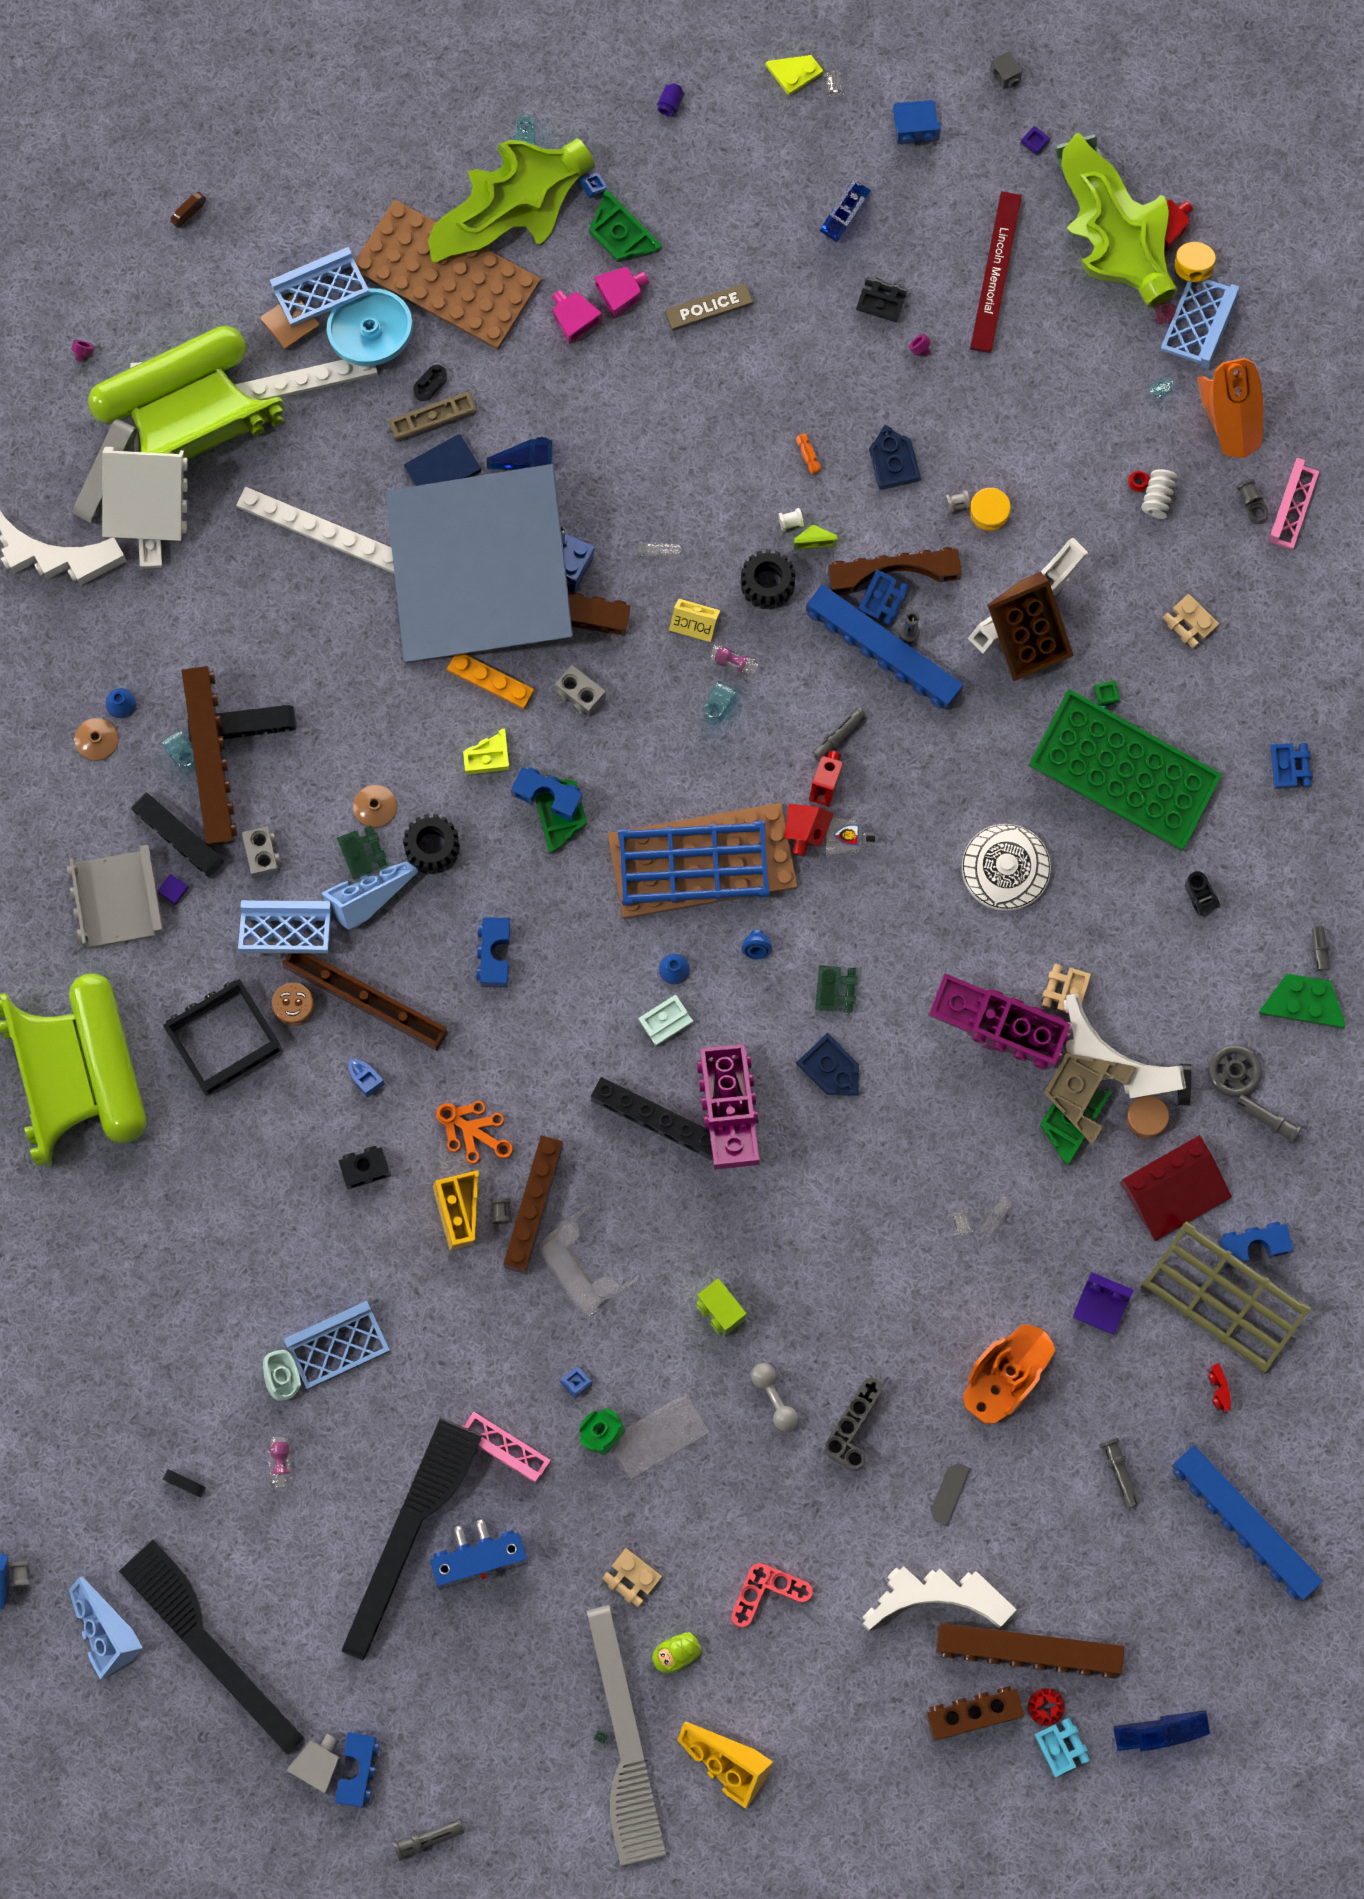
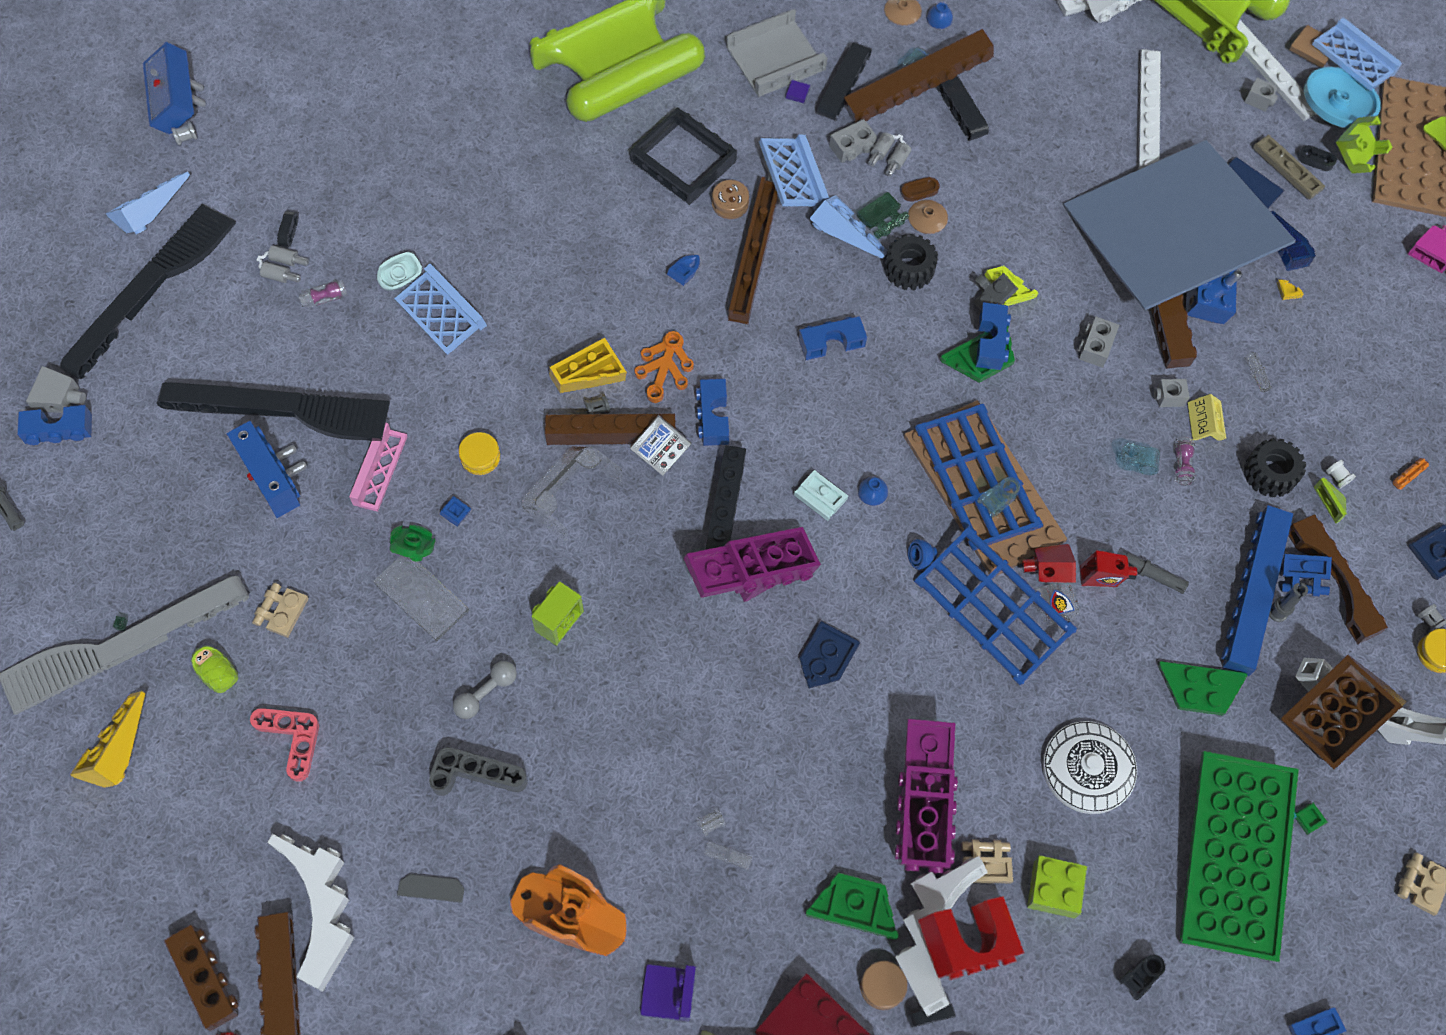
camera: 70 degrees right, 10 degrees down
(236, 1505) = (278, 272): none -> light grey piece
(293, 811) = (882, 147): none -> light grey piece
(336, 414) = (1262, 94): none -> light grey brick
(339, 802) = (920, 189): none -> reddish brown tile
(377, 1170) = (599, 278): black brick -> none
(433, 335) = (1359, 145): none -> lime panel
(490, 680) = (1077, 272): light orange plate -> none
(496, 773) = (995, 292): none -> dark grey plate
(519, 1343) = (479, 453): none -> yellow head
(562, 1103) = (714, 428): none -> blue arch
(570, 1159) = (660, 445): none -> tile
(575, 479) = (1288, 290): none -> yellow tile
(661, 634) = (1177, 387): none -> light grey brick
(728, 855) = (997, 499): none -> clear light blue piece
(805, 894) = (1018, 612): none -> blue door
(828, 989) = (903, 632): clear green plate -> none
(961, 737) = (1201, 687): none -> green wing
(1077, 1083) = (888, 895): dark tan wing -> none
(1106, 937) = (1057, 887): none -> lime brick
(1143, 1006) = (953, 956): none -> red arch

